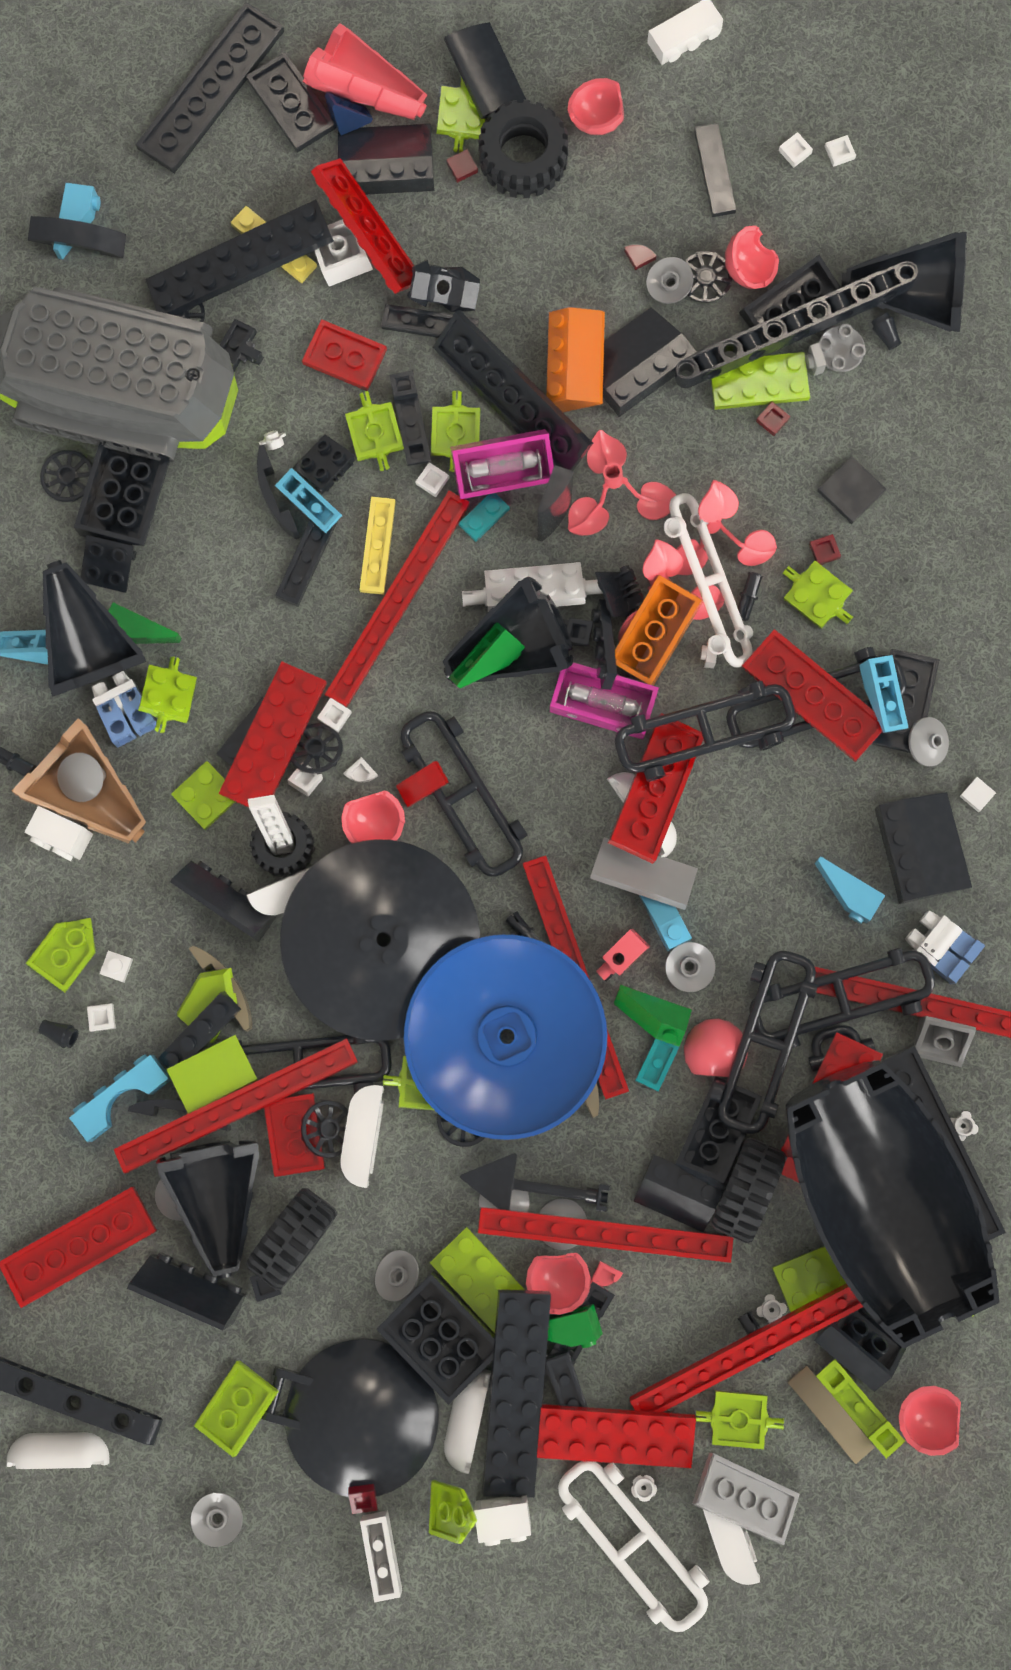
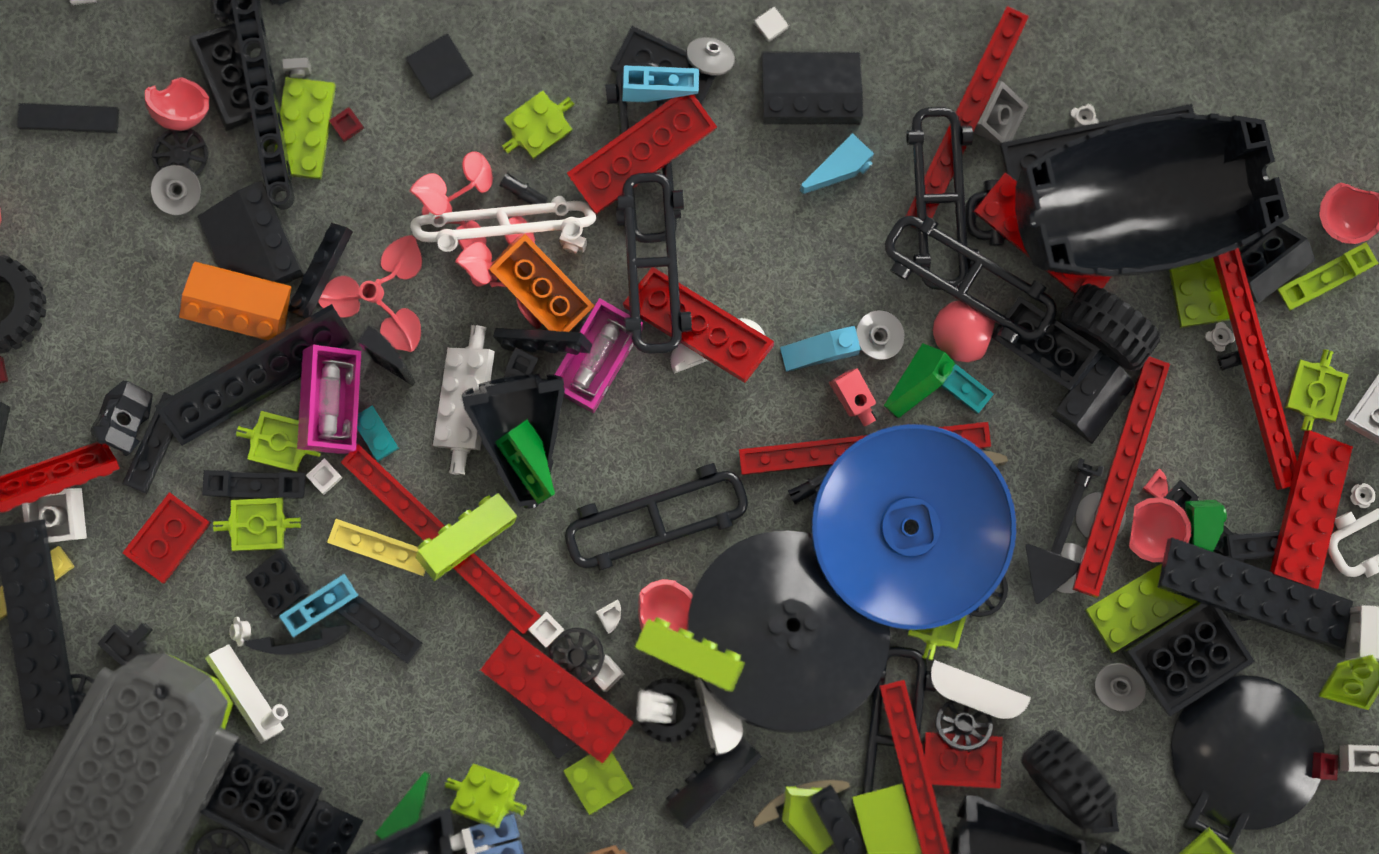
camera: 85 degrees left, 0 degrees up
(216, 459) = (245, 694): none -> white piece
(332, 847) = (690, 655): none -> lime brick
(403, 619) = (466, 536): none -> lime brick
(422, 783) = (639, 555): red tile -> none
(465, 1423) = (1275, 652): white brick -> none
(618, 593) = (491, 317): black hinge -> none
(625, 428) = (320, 270): none -> black plate
(639, 255) = (139, 214): tile -> none
(661, 881) = (793, 339): light grey tile -> none
(795, 149) = (69, 33): white plate -> none
(825, 549) = (493, 107): dark red tile -> none
(831, 1414) = (1326, 305): dark tan slope -> none
(842, 348) = (291, 39): light grey dish -> none
(945, 946) = (911, 92): hips -> none

